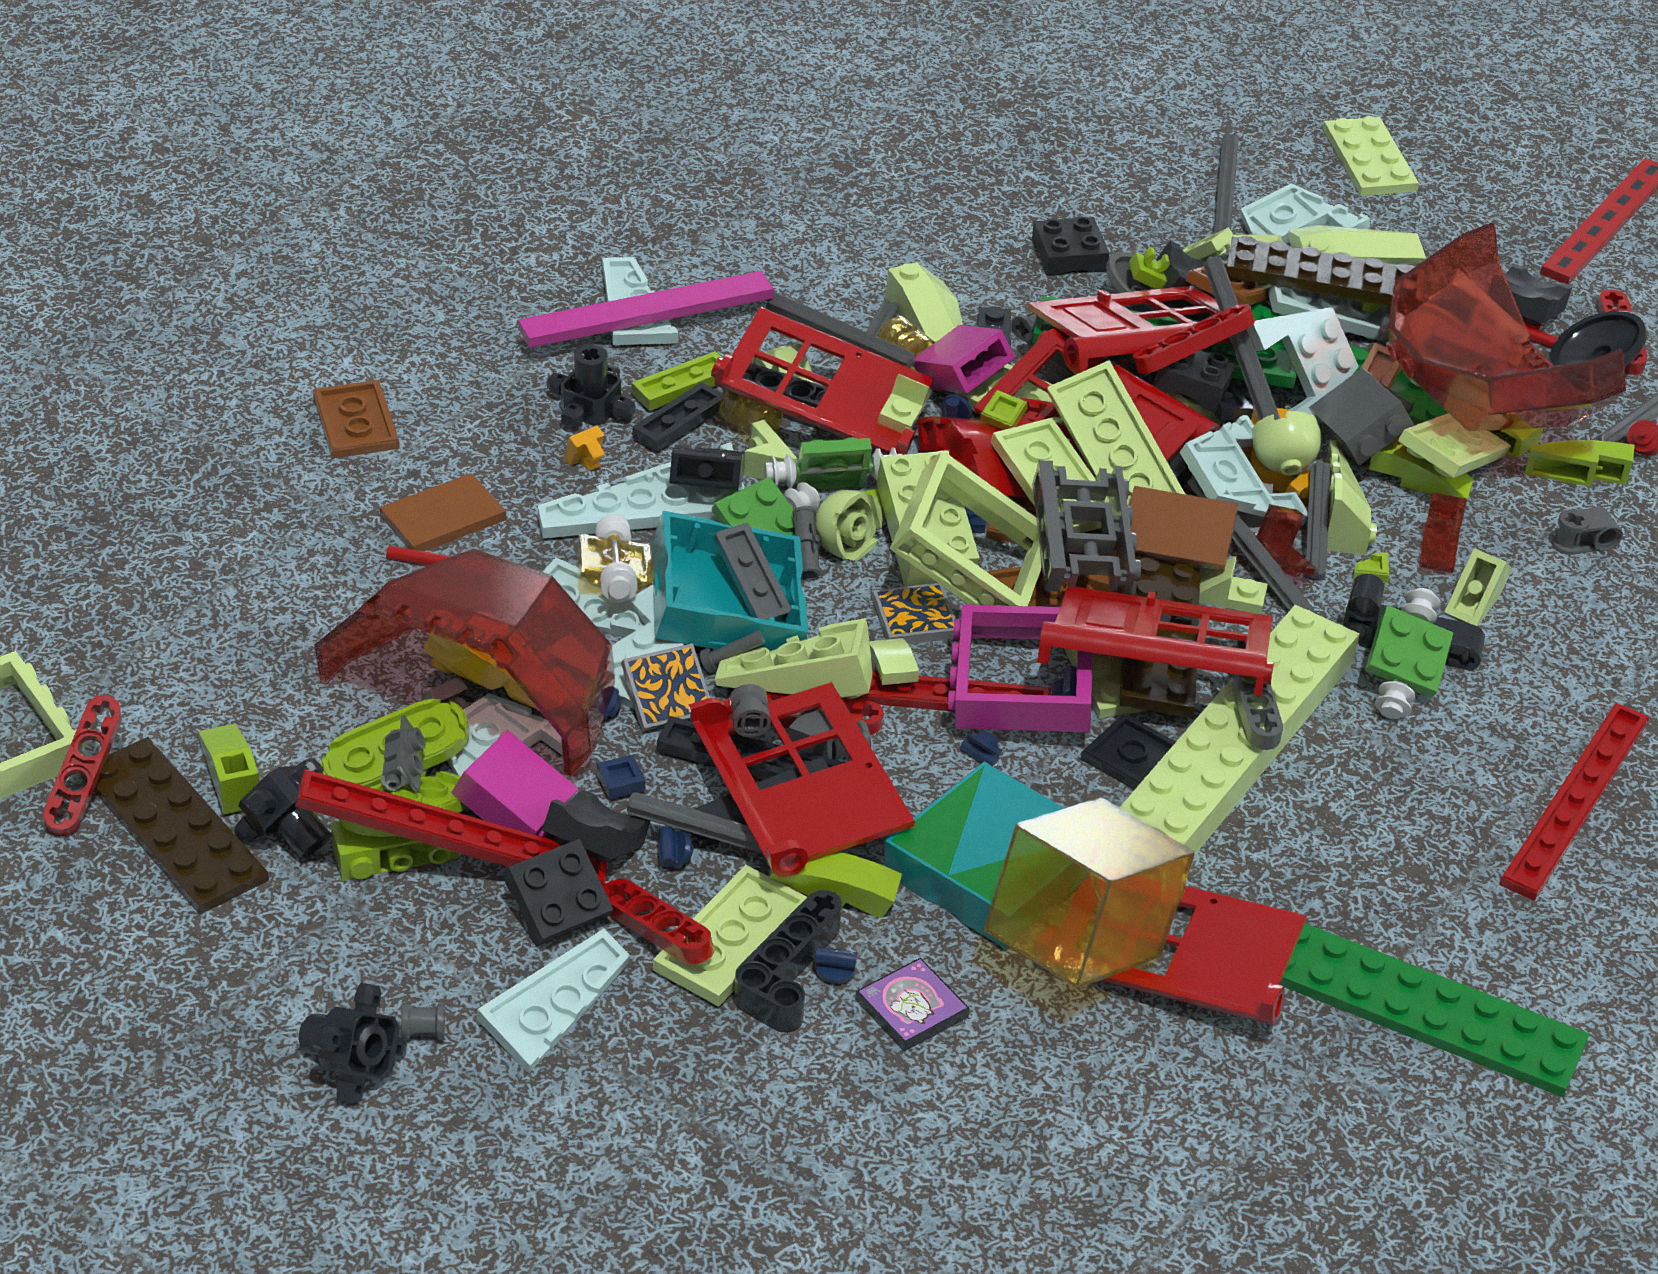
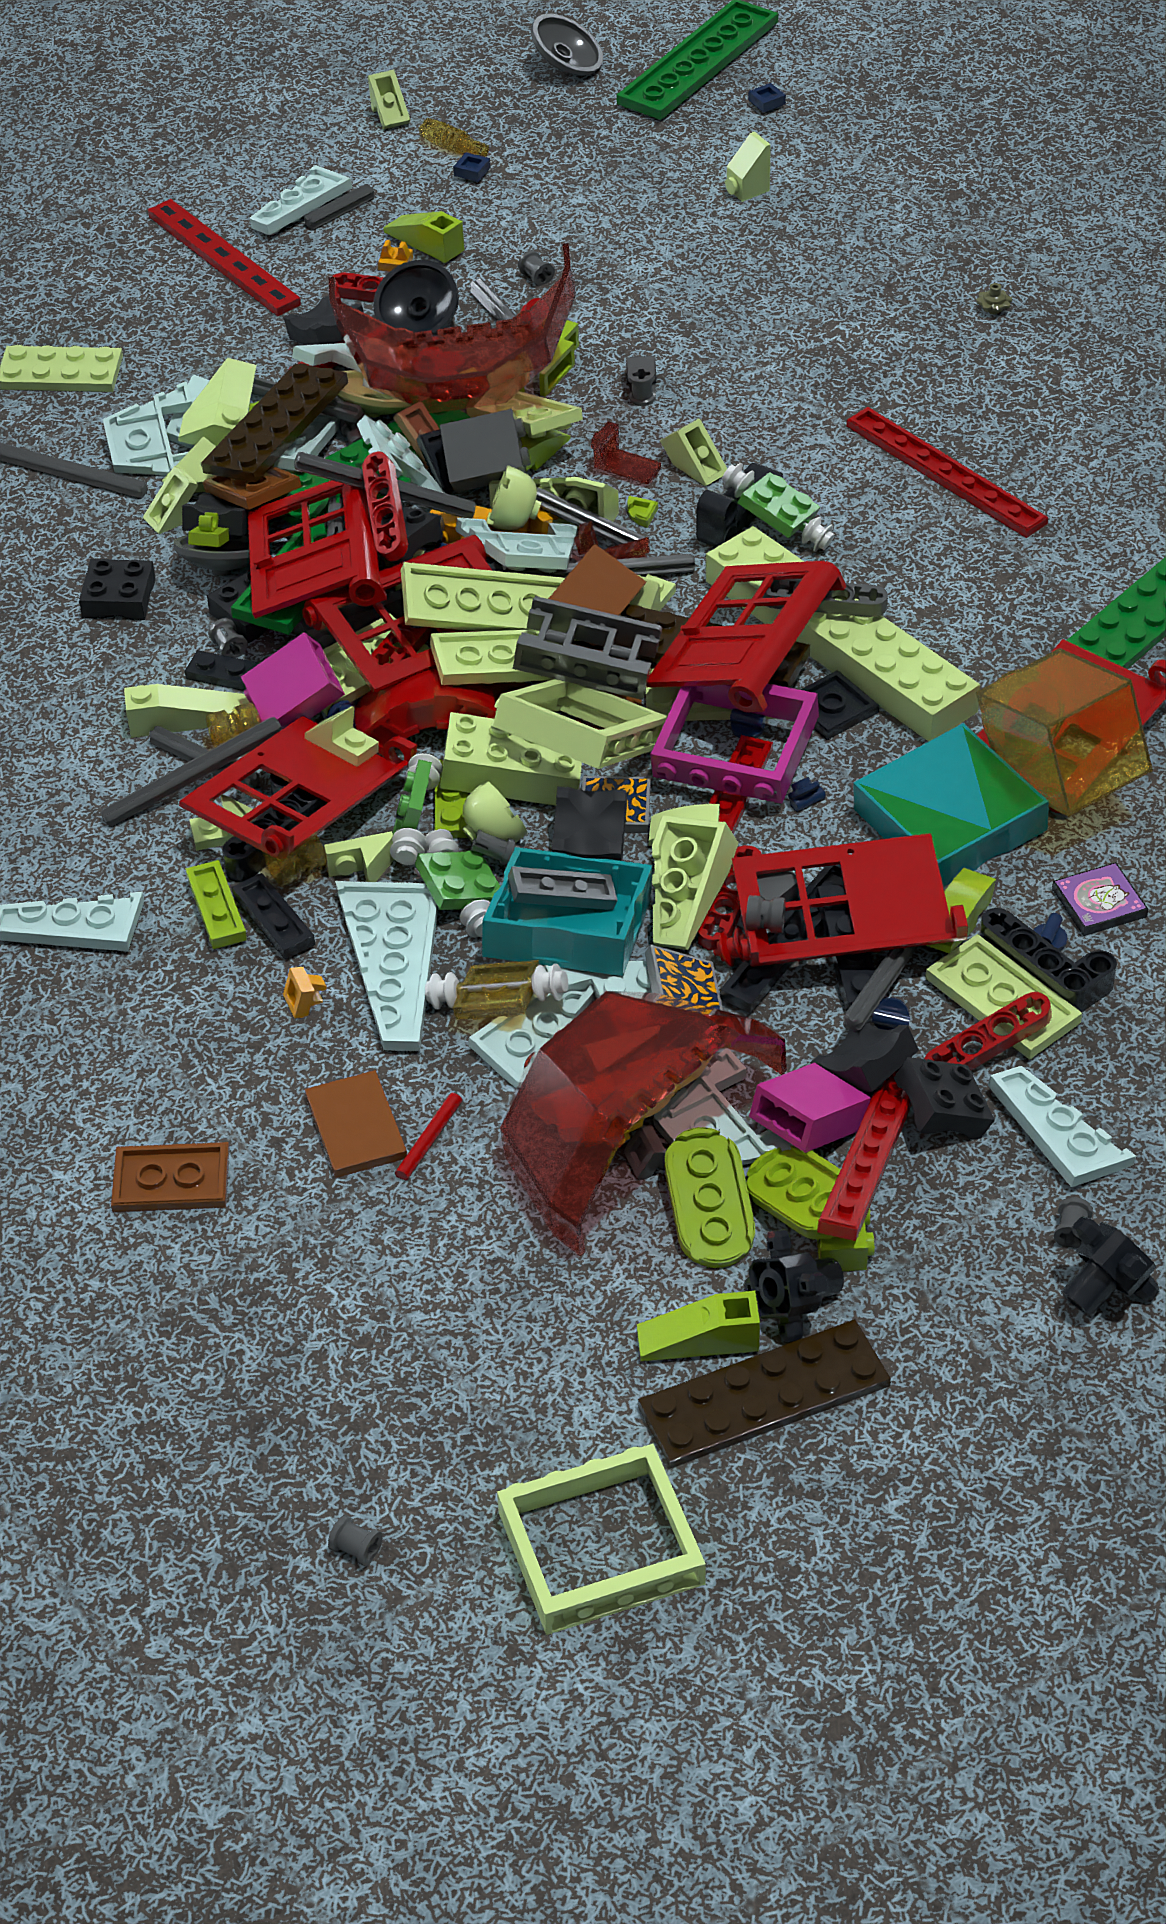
camera: 70 degrees left, 5 degrees up
(79, 764) = (686, 1451): red beam -> none
(403, 757) = (741, 1173): dark grey hinge -> none
(591, 389) = (216, 971): black piece -> none
(621, 776) = (794, 1037): dark blue plate -> none
(645, 309) = (101, 908): dark pink tile -> none
(707, 467) = (395, 892): black brick -> none
(711, 659) = (645, 927): dark grey piece -> none
(859, 587) = (590, 823): none -> black brick
(1003, 411) = (396, 668): lime tile -> none

